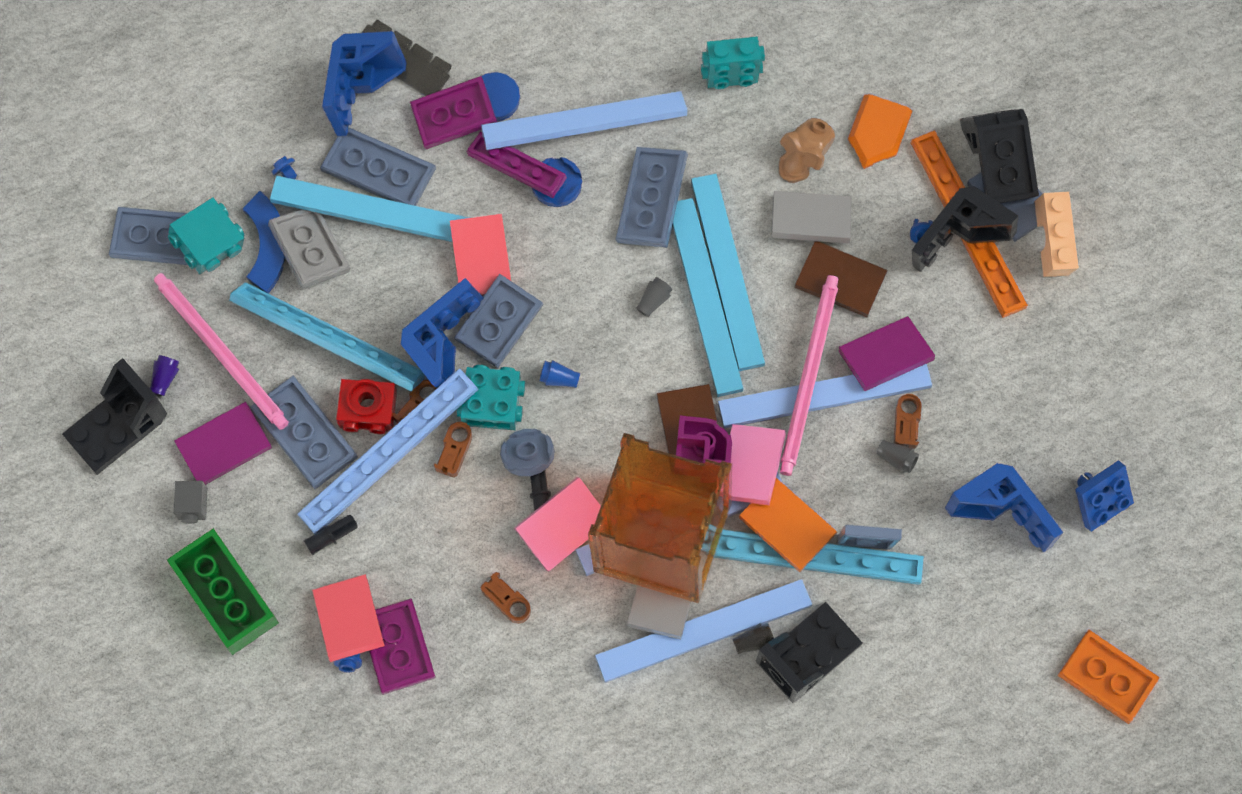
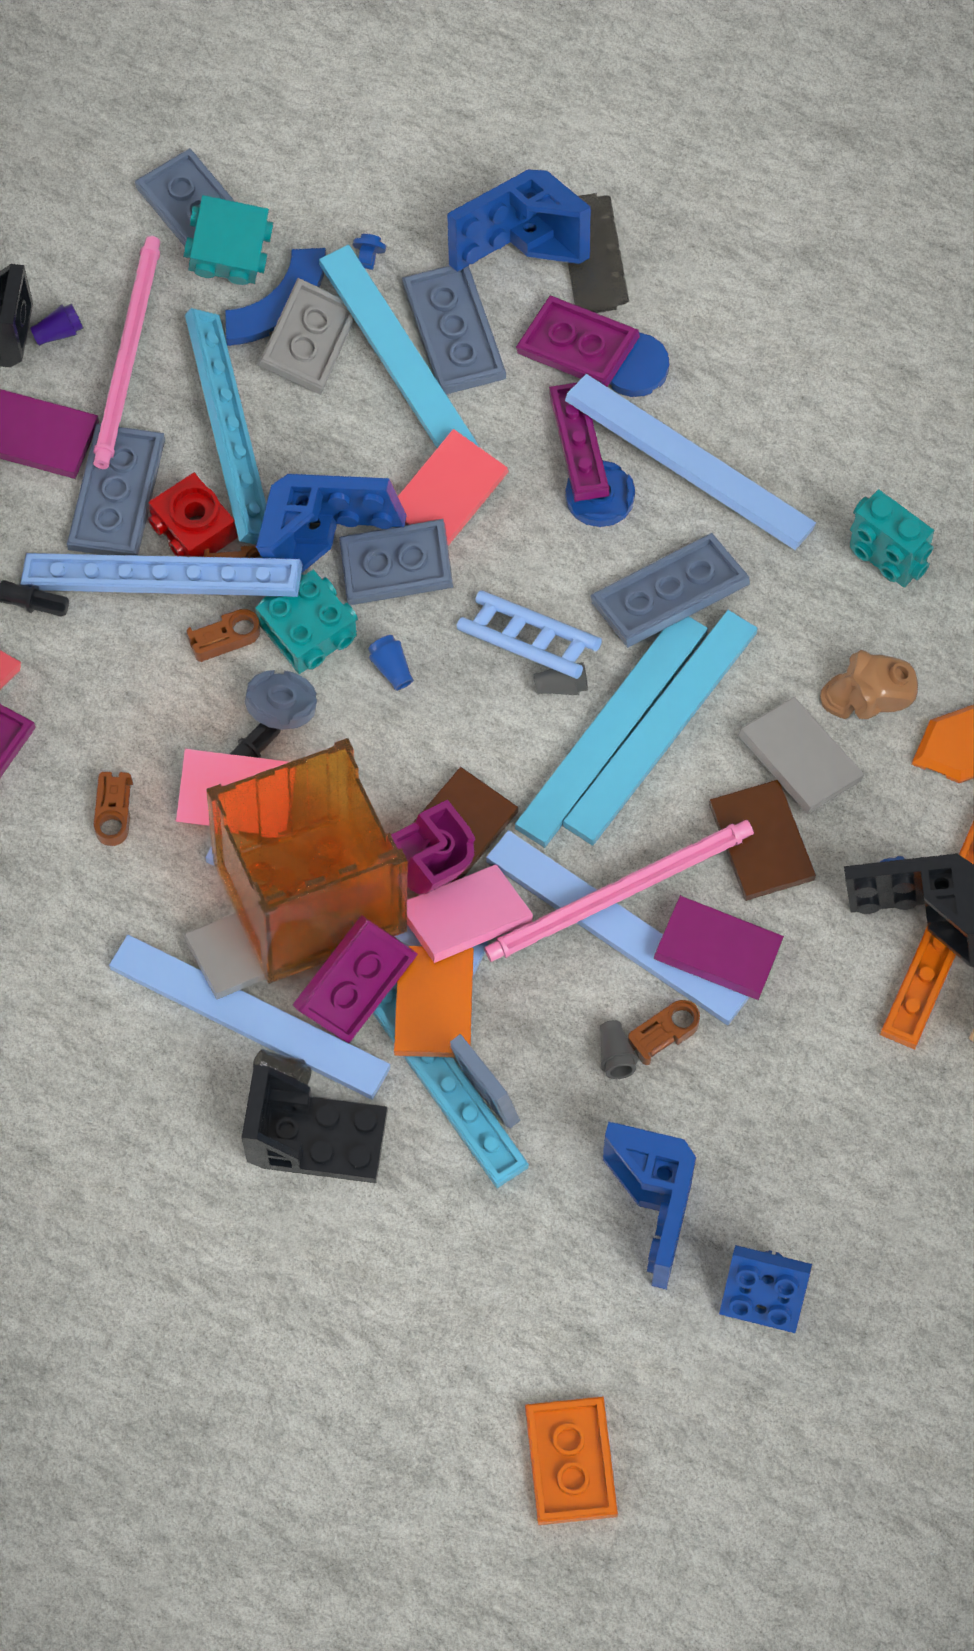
camera: 50 degrees right, 5 degrees down
(627, 296) = (536, 651): none -> light blue bar
(745, 554) = (355, 979): none -> magenta tile

